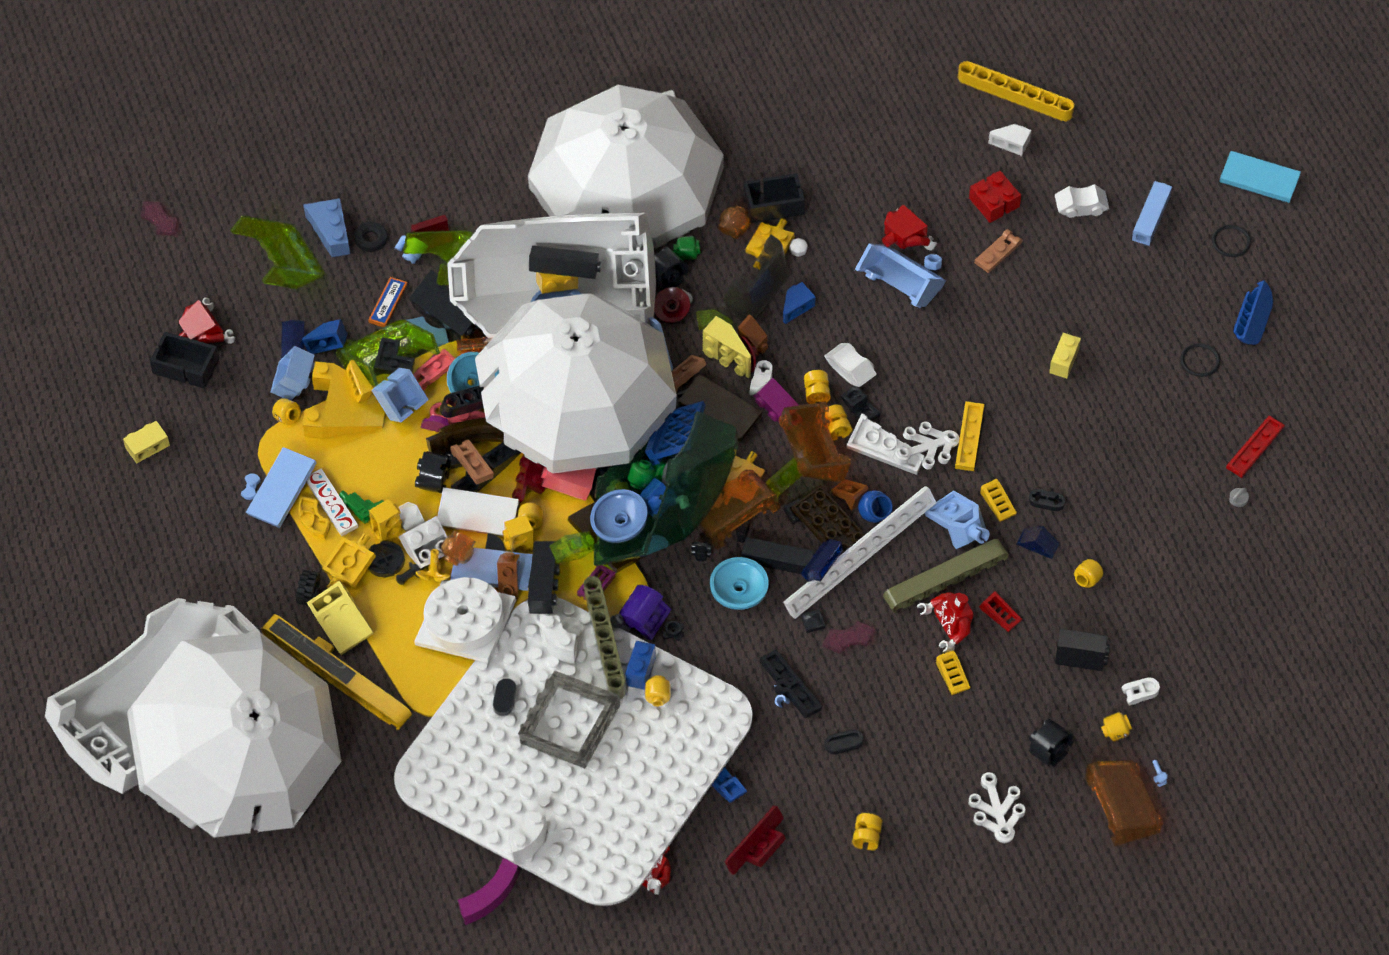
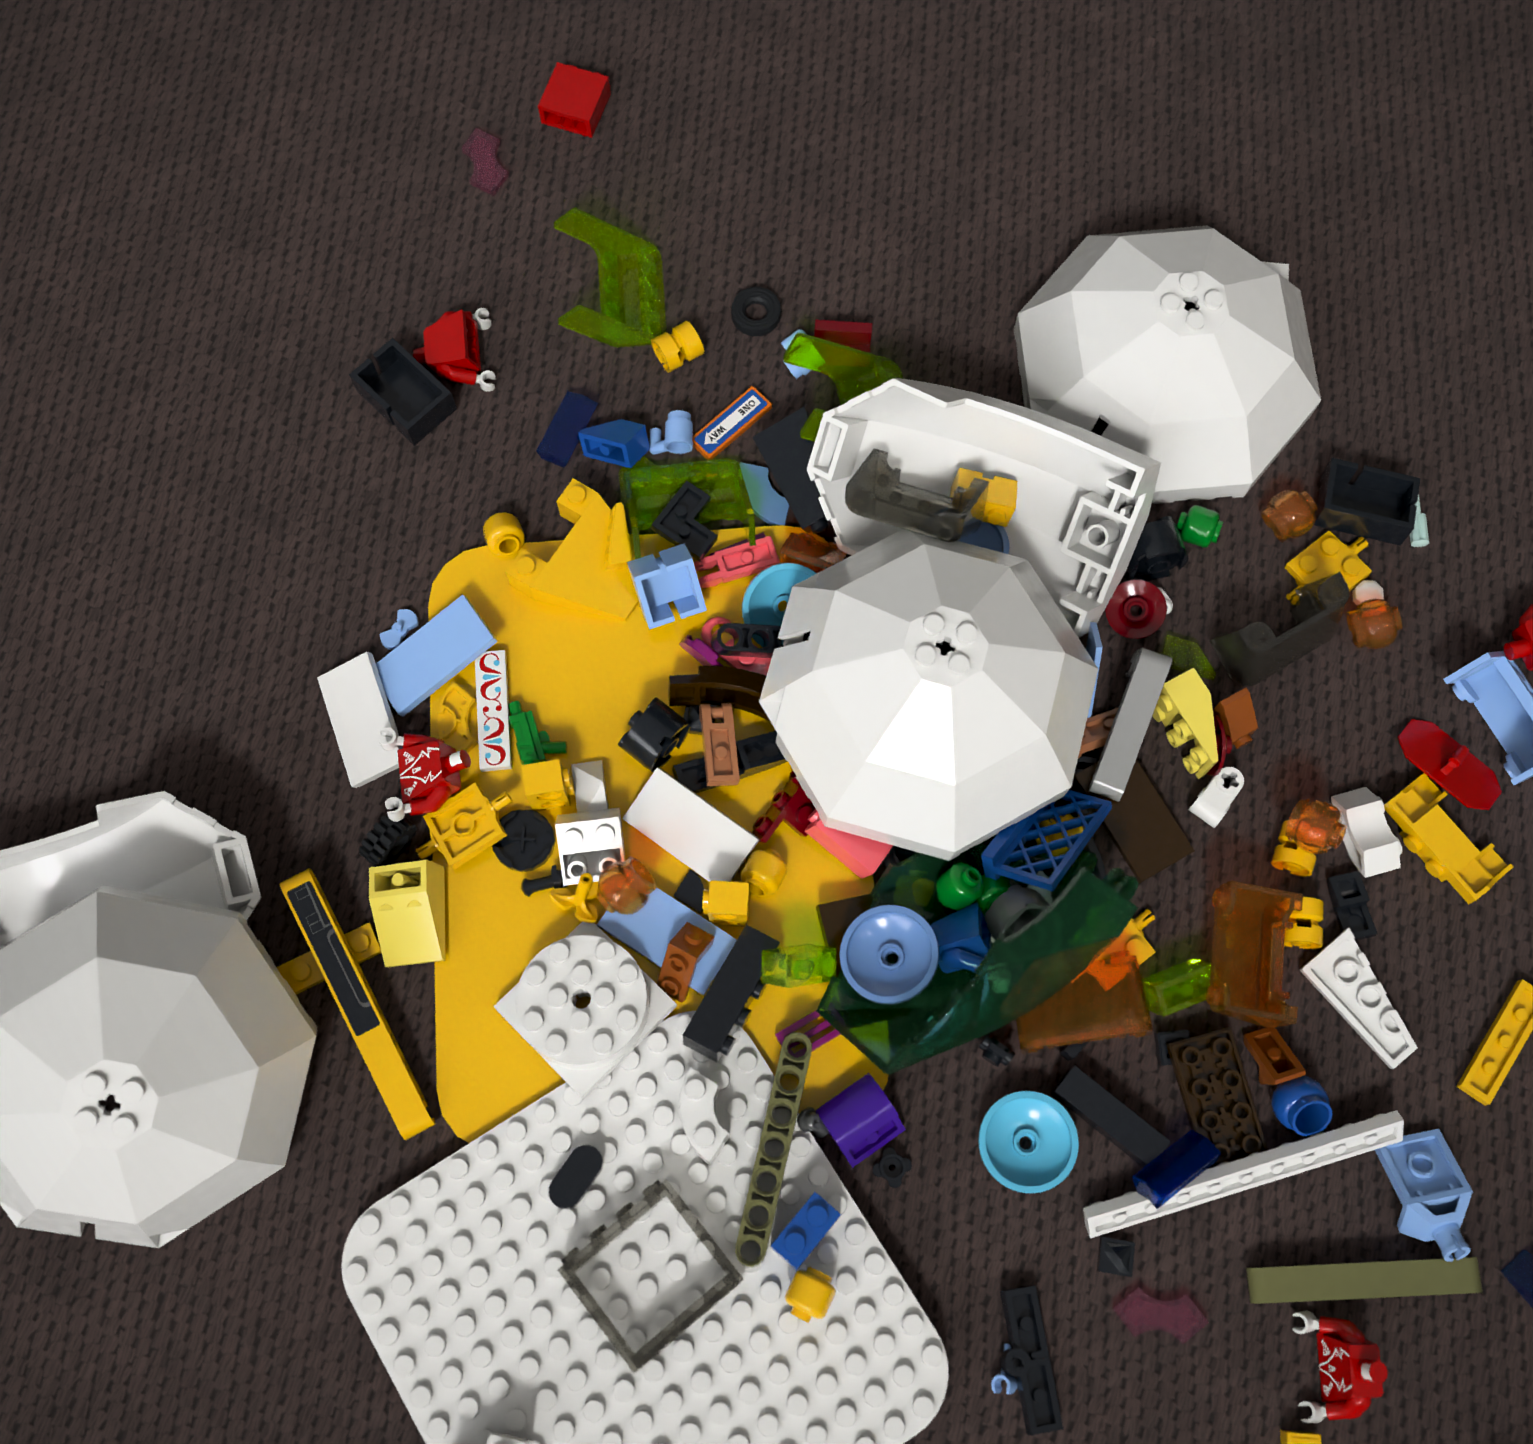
camera: 25 degrees right, 15 degrees up
(146, 442) = (290, 494): light yellow brick -> none
(197, 161) = (574, 99): none -> red brick
(257, 538) = (357, 715): none -> white tile
(293, 373) = (537, 481): light blue piece -> none
(312, 543) = (427, 773): none -> red torso
(329, 225) = (707, 271): medium blue wedge -> none
(335, 271) = (675, 347): none -> yellow wheel
(361, 319) = (677, 434): none -> light blue piece
(496, 294) = (880, 496): none -> clear smoke windscreen
(564, 262) = (1008, 484): black brick -> none
(695, 358) = (1131, 722): none -> light grey beam
(773, 399) = (1223, 846): magenta brick -> none
(797, 301) = (1328, 686): blue slope -> none
(807, 259) = (1374, 624): none -> clear orange piece
(810, 201) = (1419, 536): none -> light aqua axle
(817, 366) = (1315, 826): none -> clear orange piece
(881, 314) = (1449, 764): none -> red shield
(893, 353) = (1441, 843): none -> yellow bracket
(902, 454) = (1433, 1032): white plant -> none
(986, 608) = (1405, 1366): red slope -> none
(994, 489) = (1490, 1168): yellow slope -> none

